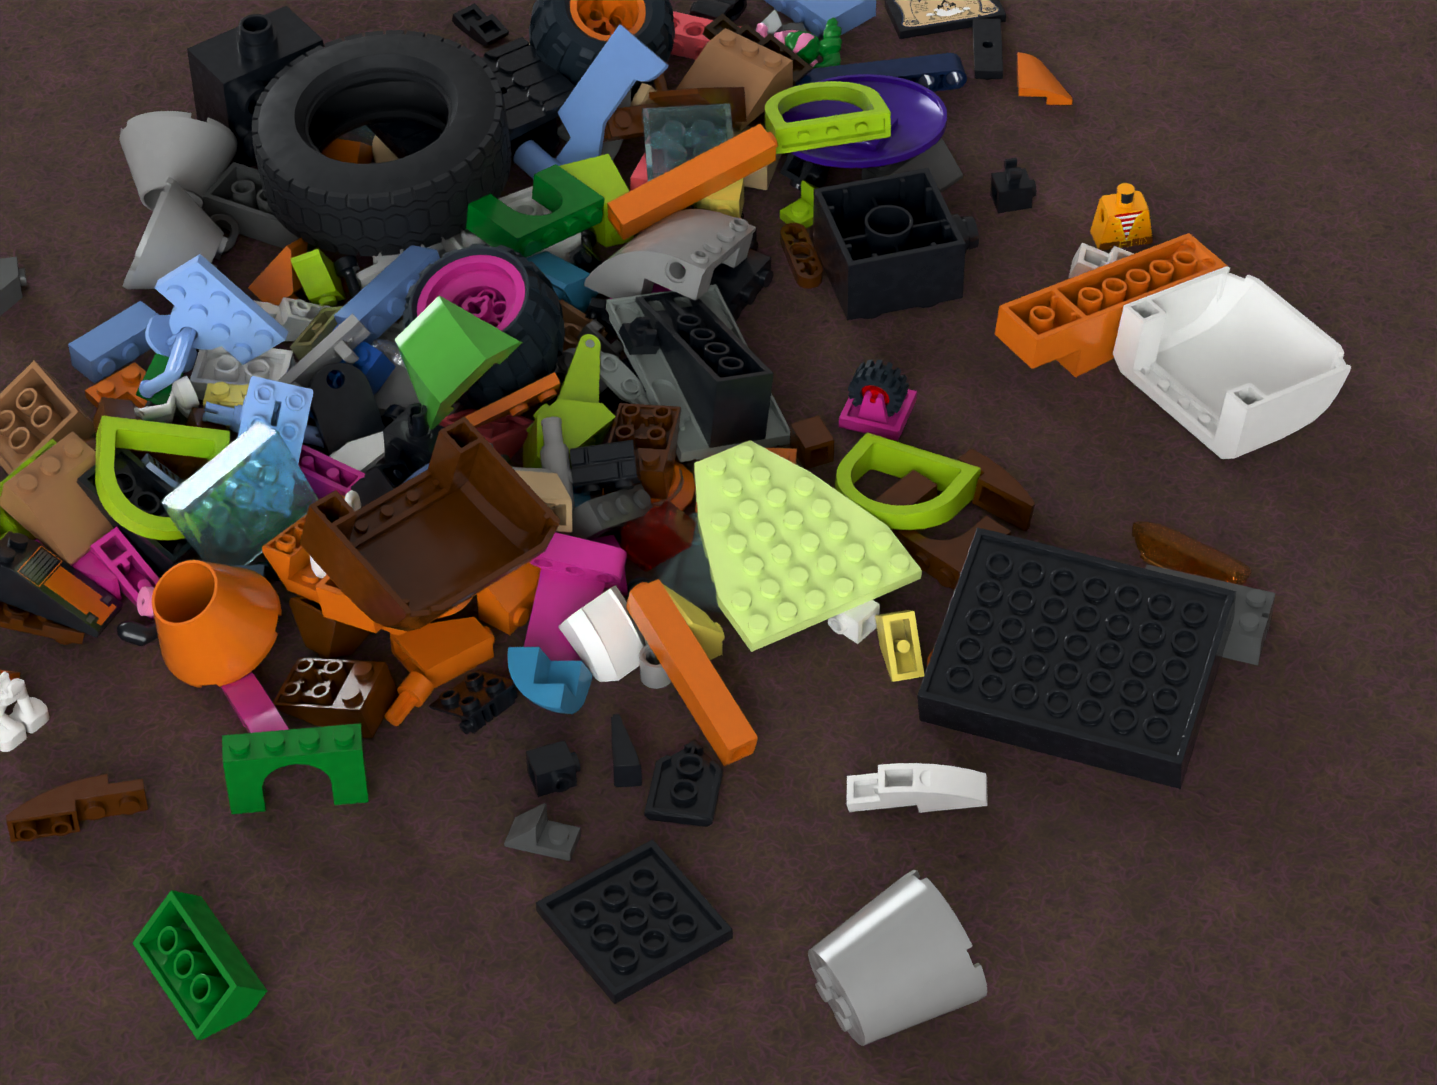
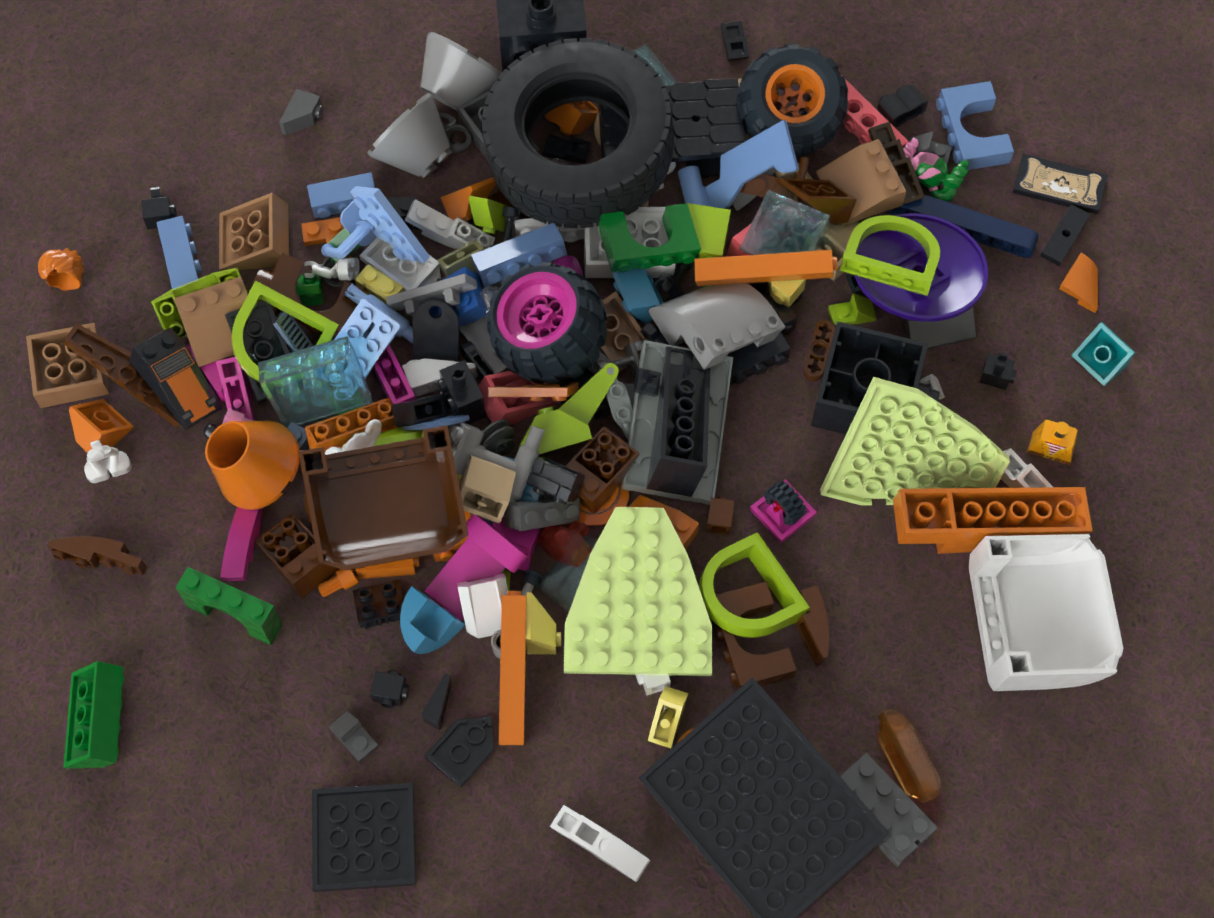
camera: 30 degrees right, 20 degrees up
(448, 353) = (497, 345): bright green wedge -> none
(967, 260) = (909, 443): none -> yellowish green wing
(1112, 127) = (1104, 354): none -> teal slope

